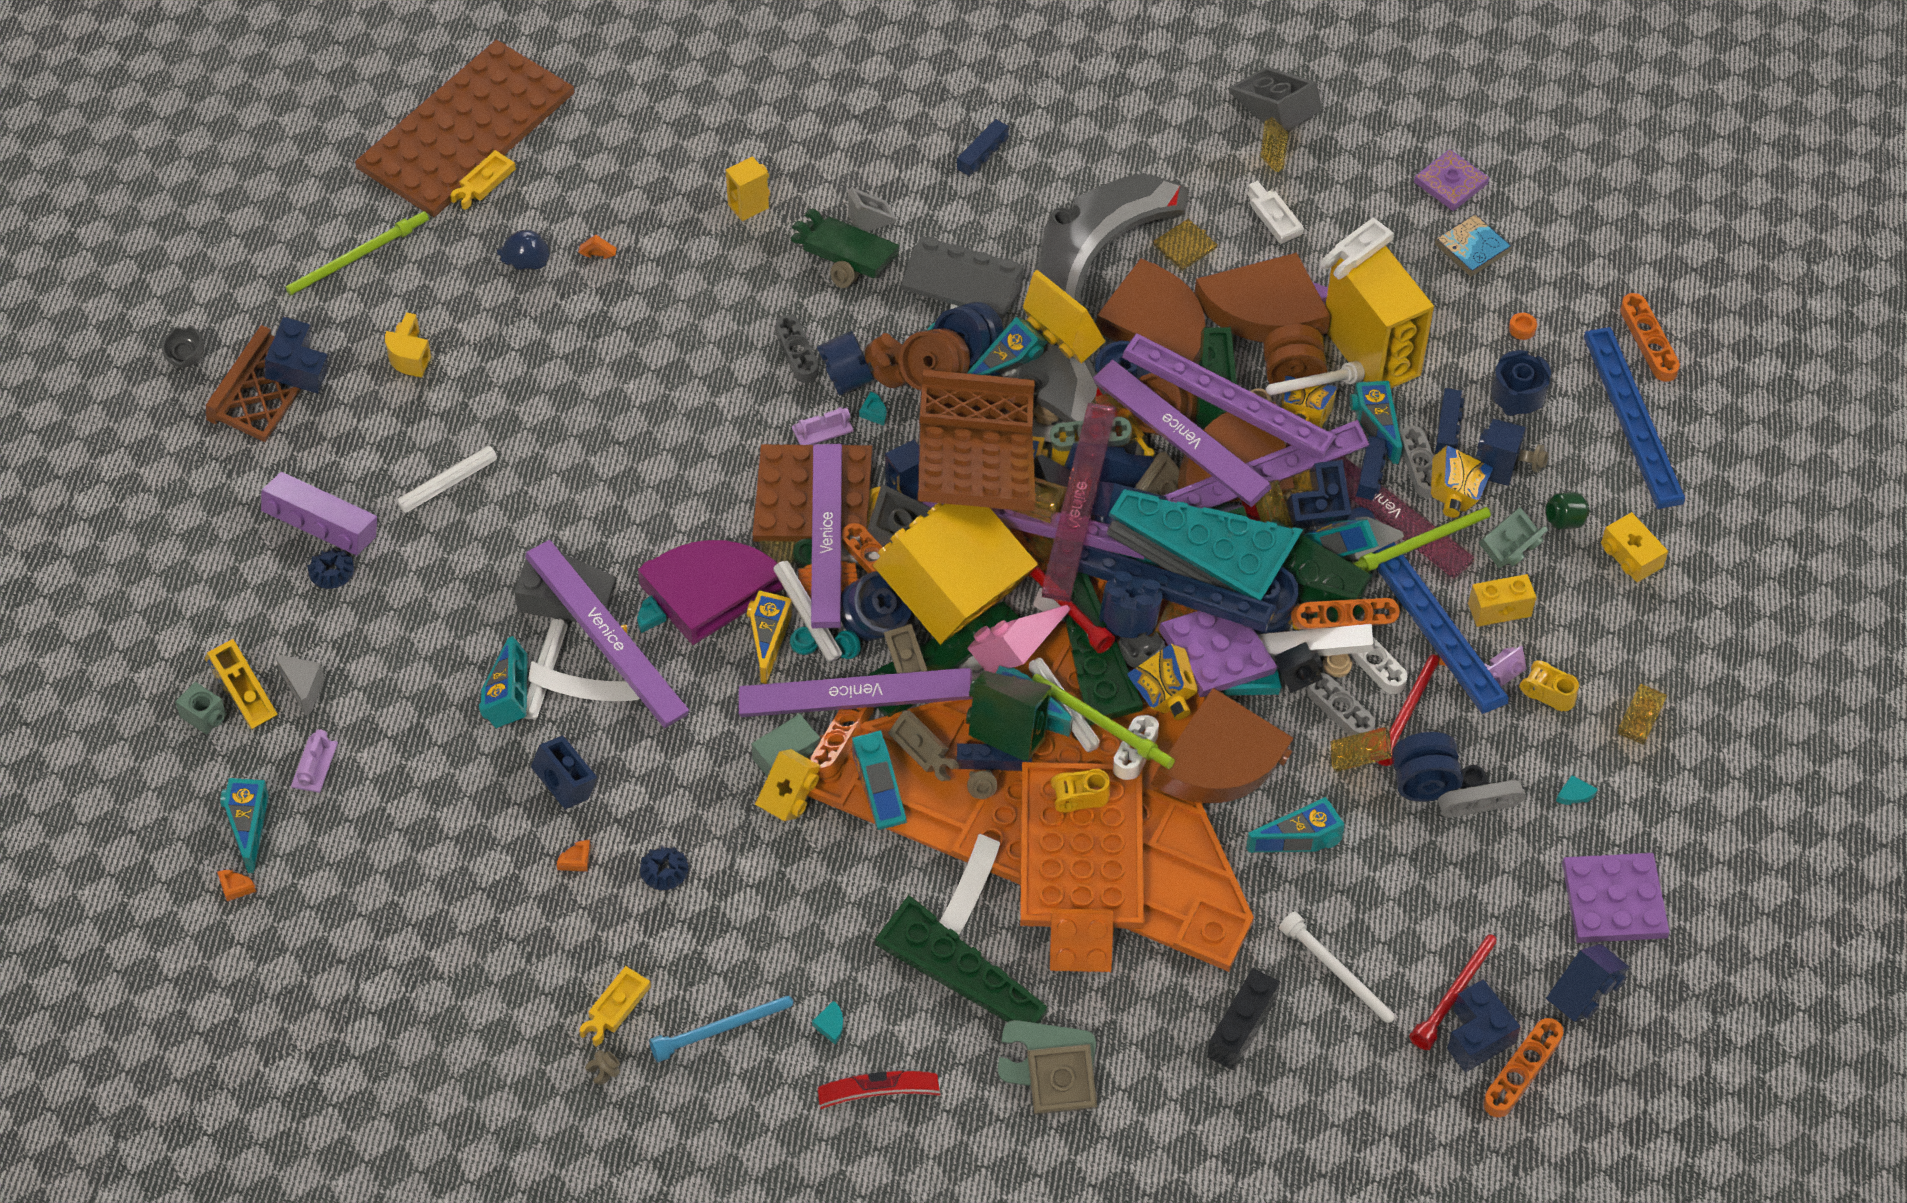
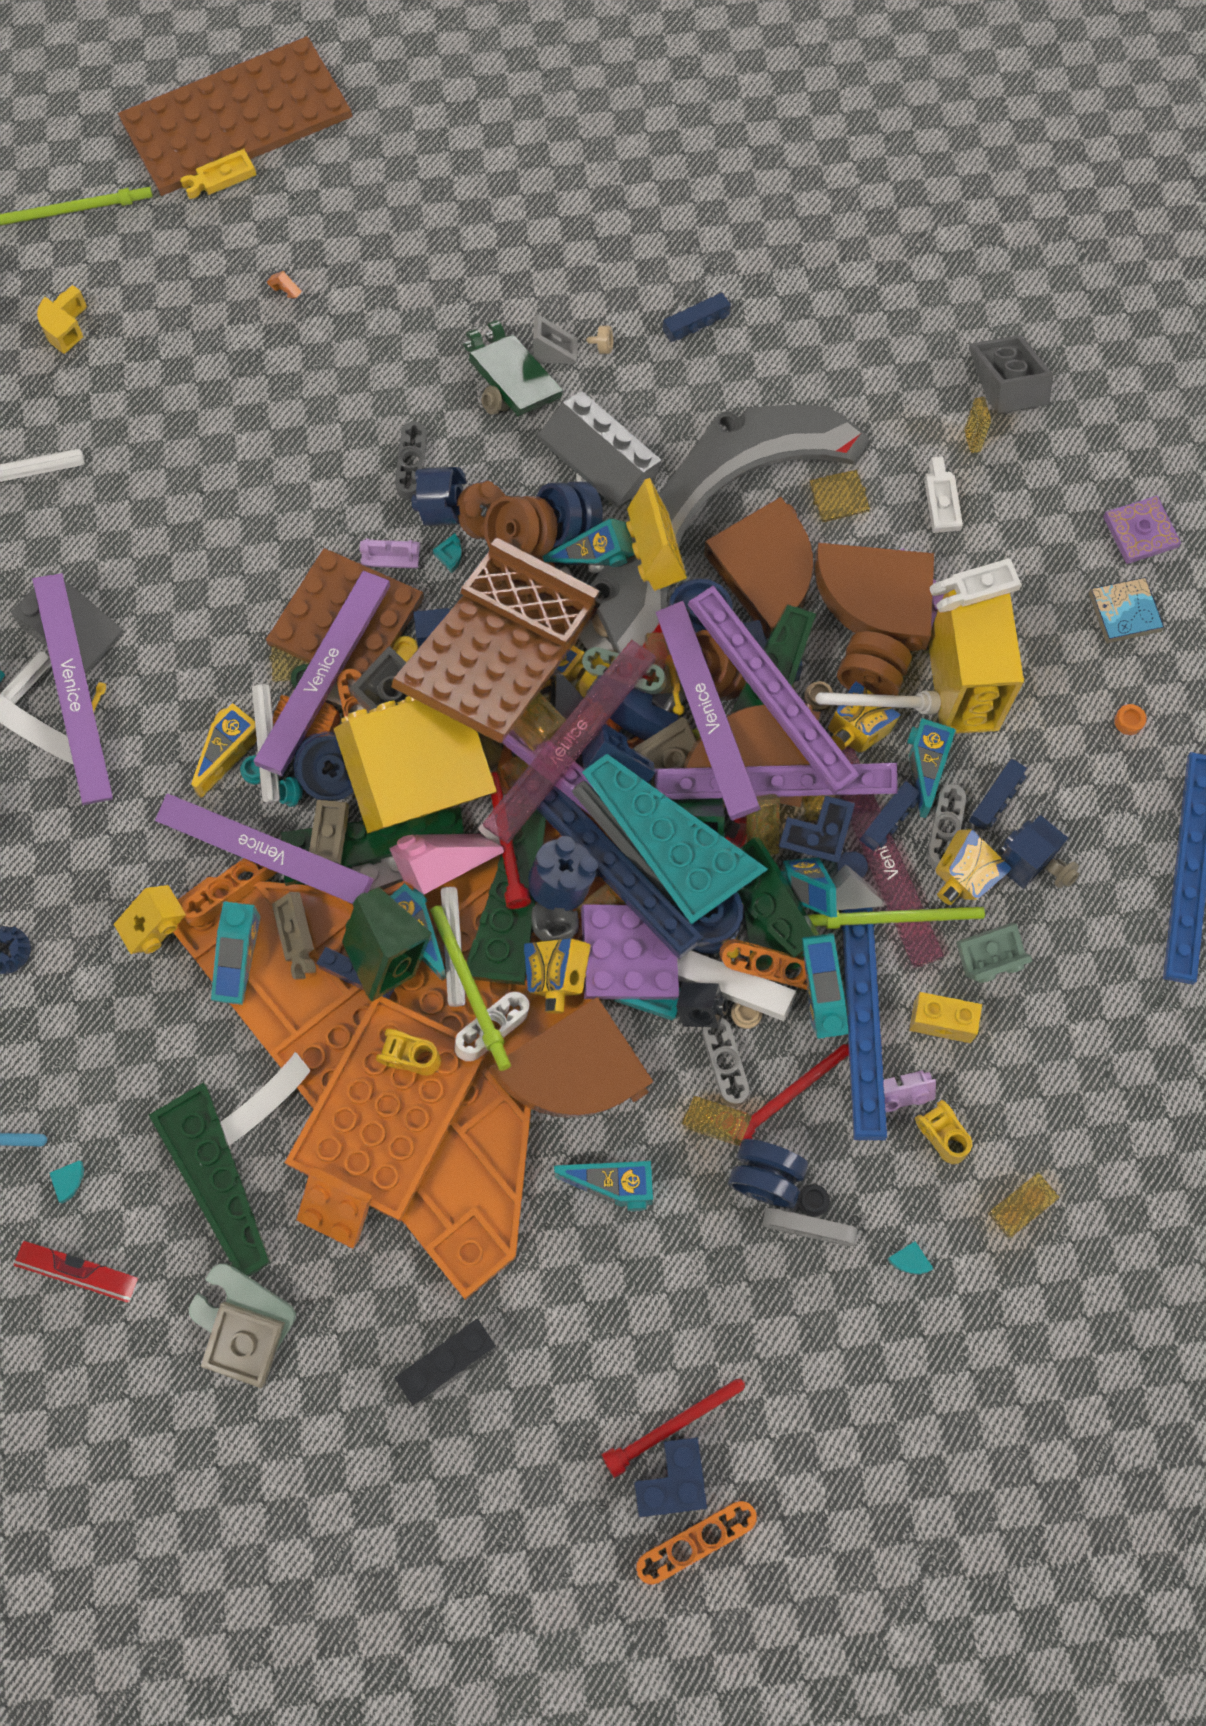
camera: 25 degrees right, 15 degrees up
(524, 250) = (219, 262): dark blue hair -> none
(650, 615) = (132, 682): teal tile -> none
(707, 584) = (194, 674): magenta brick -> none
(747, 188) = (447, 276): yellow brick -> none
(793, 735) = (181, 871): sand green brick -> none
(913, 192) = (603, 340): none -> tan tile
(981, 784) = (327, 999): dark tan plate -> none
(1294, 927) = (552, 1285): white piece -> none
(1378, 672) = (799, 1044): white beam -> none
(1394, 611) = (824, 986): none -> slope
(1520, 382) = (1091, 784): dark blue brick -> none
(1567, 510) = (1065, 945): dark green head -> none
(1584, 981) = (807, 1487): dark blue brick -> none
(1615, 897) = (889, 1396): medium lavender plate -> none
(1634, 547) = (1119, 1002): yellow brick -> none

